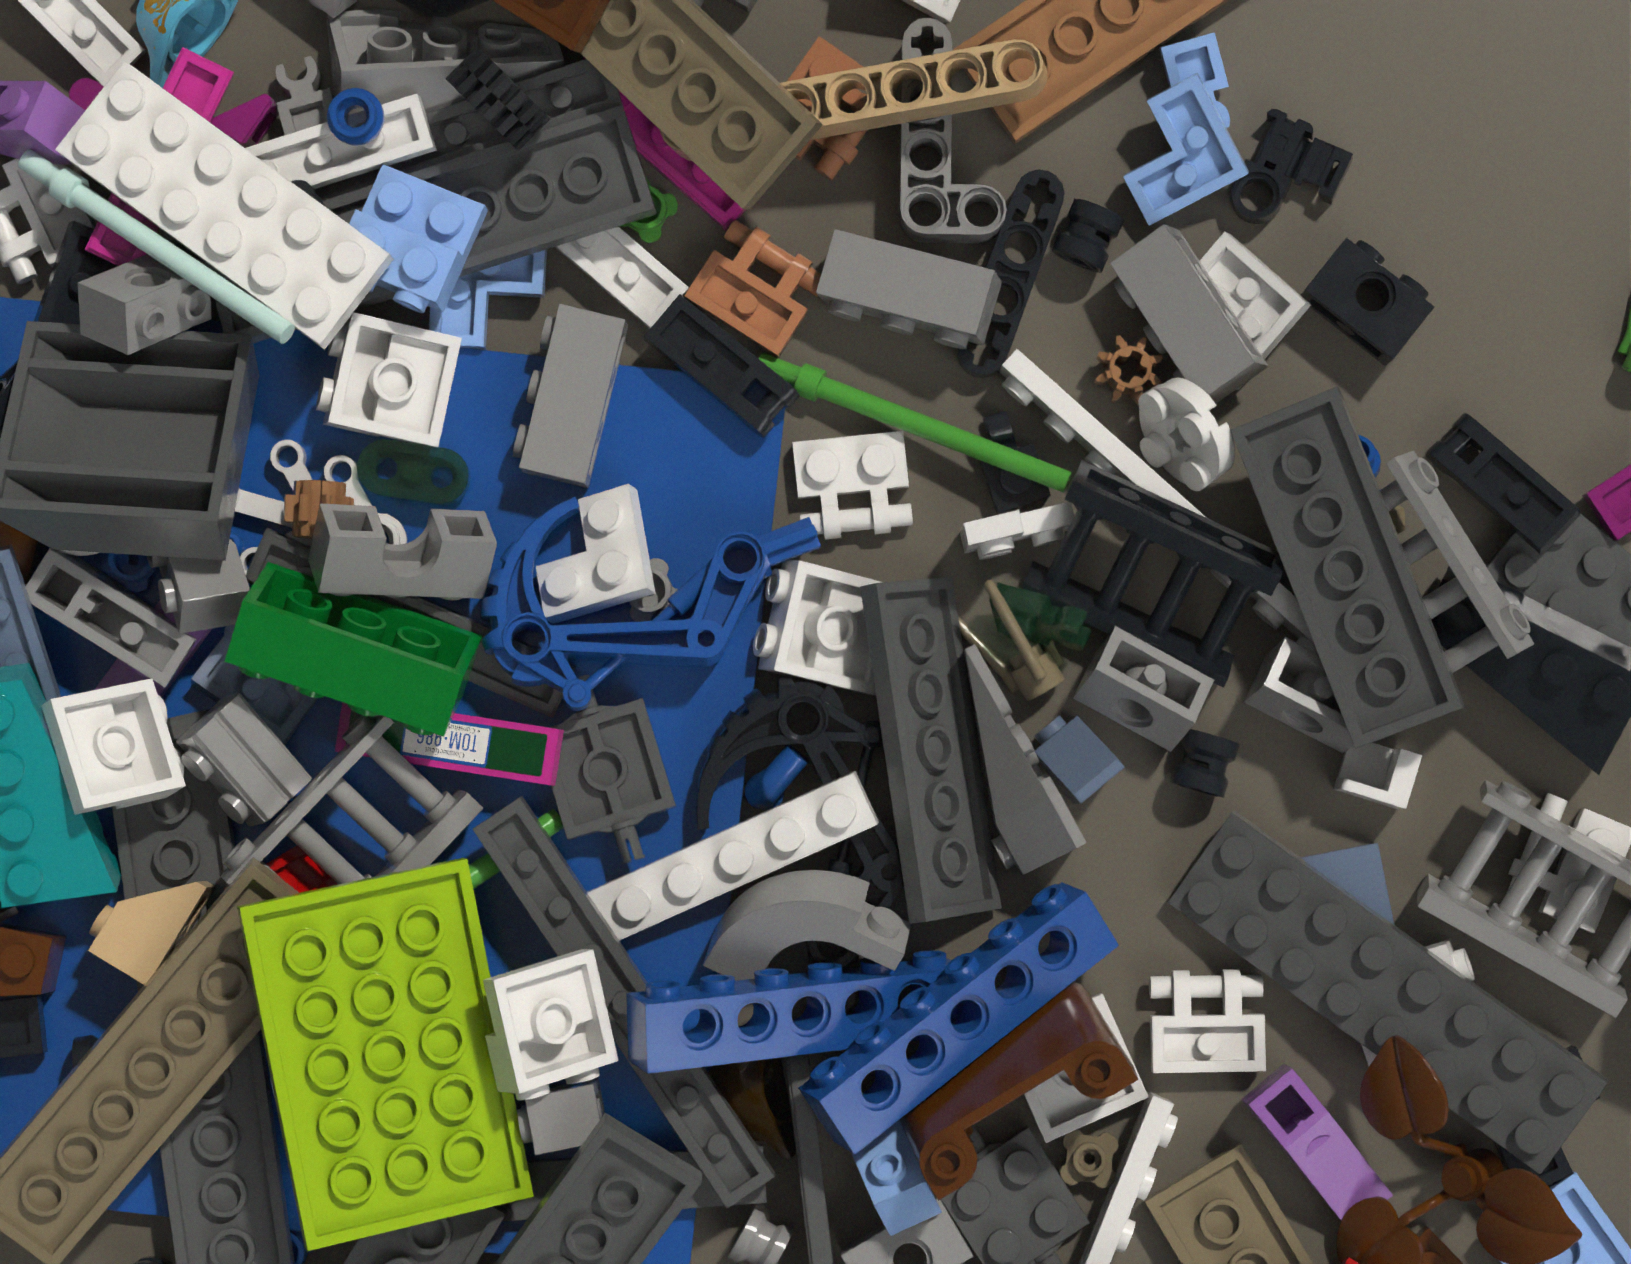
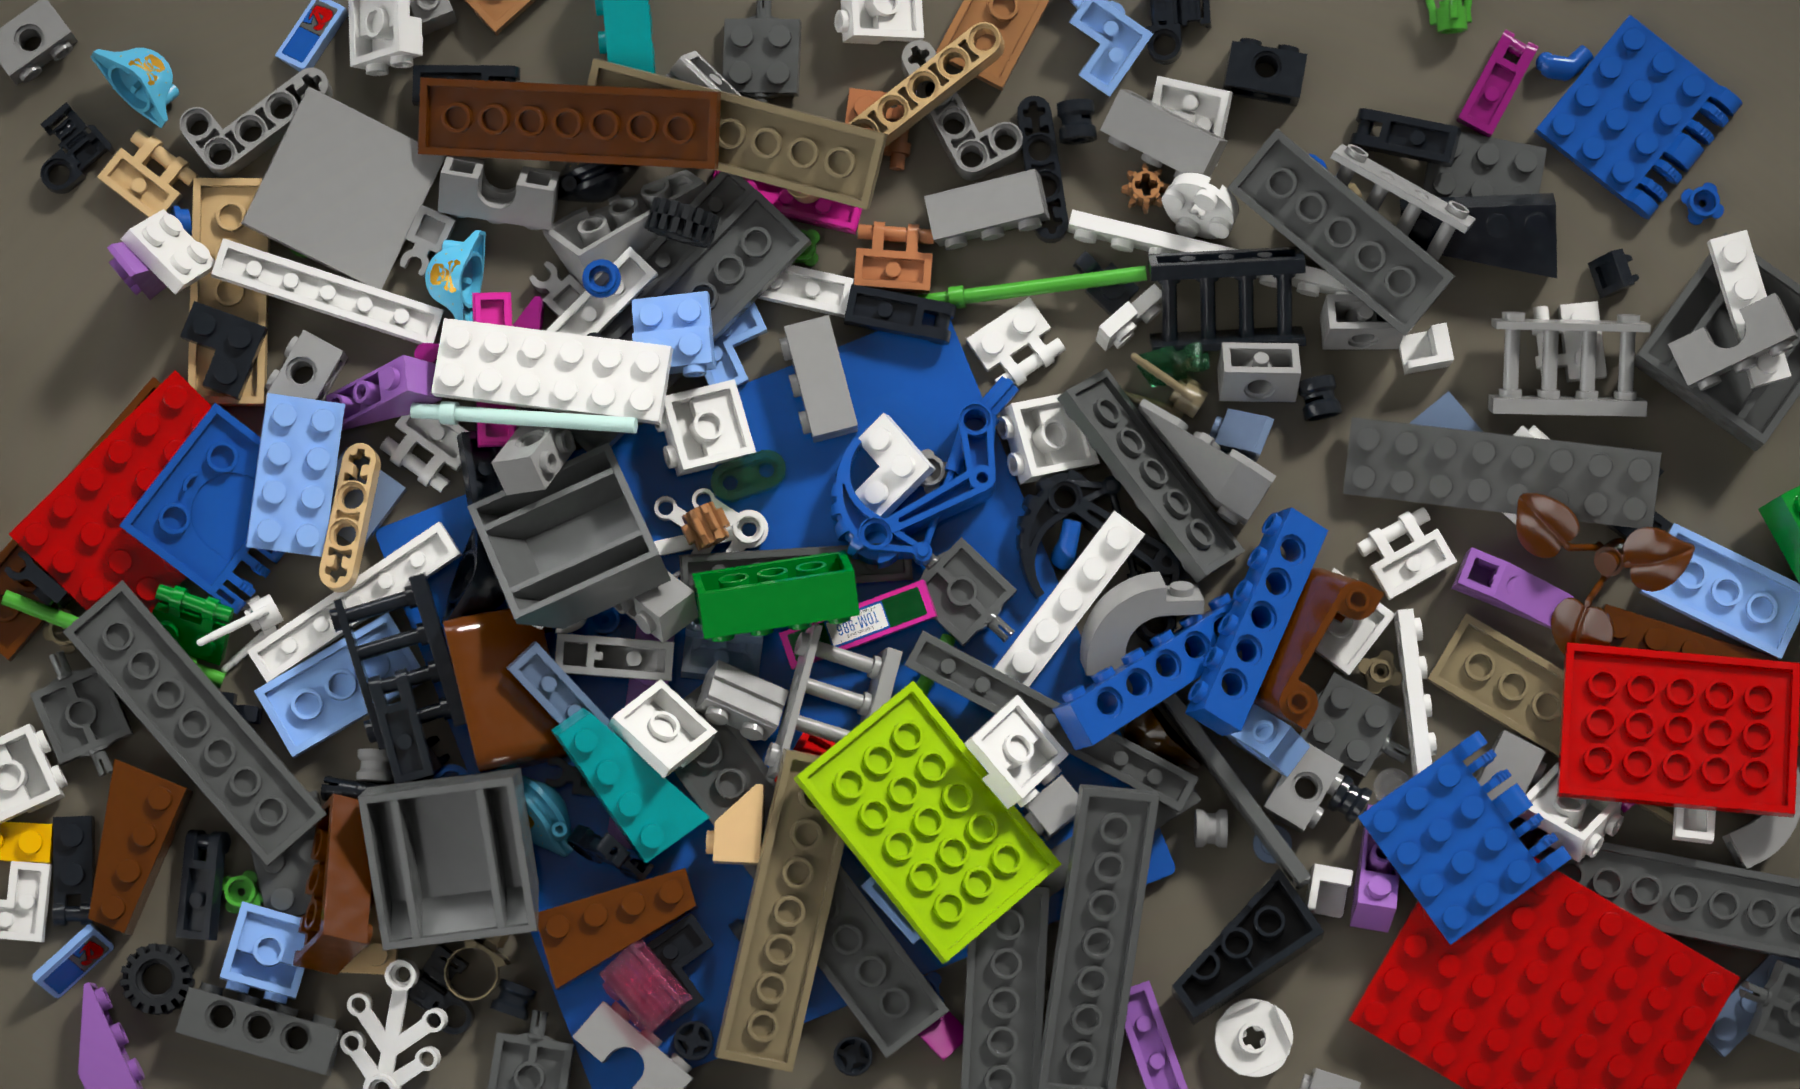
camera: 35 degrees left, 5 degrees down
(445, 561) = (798, 516): light grey arch -> none

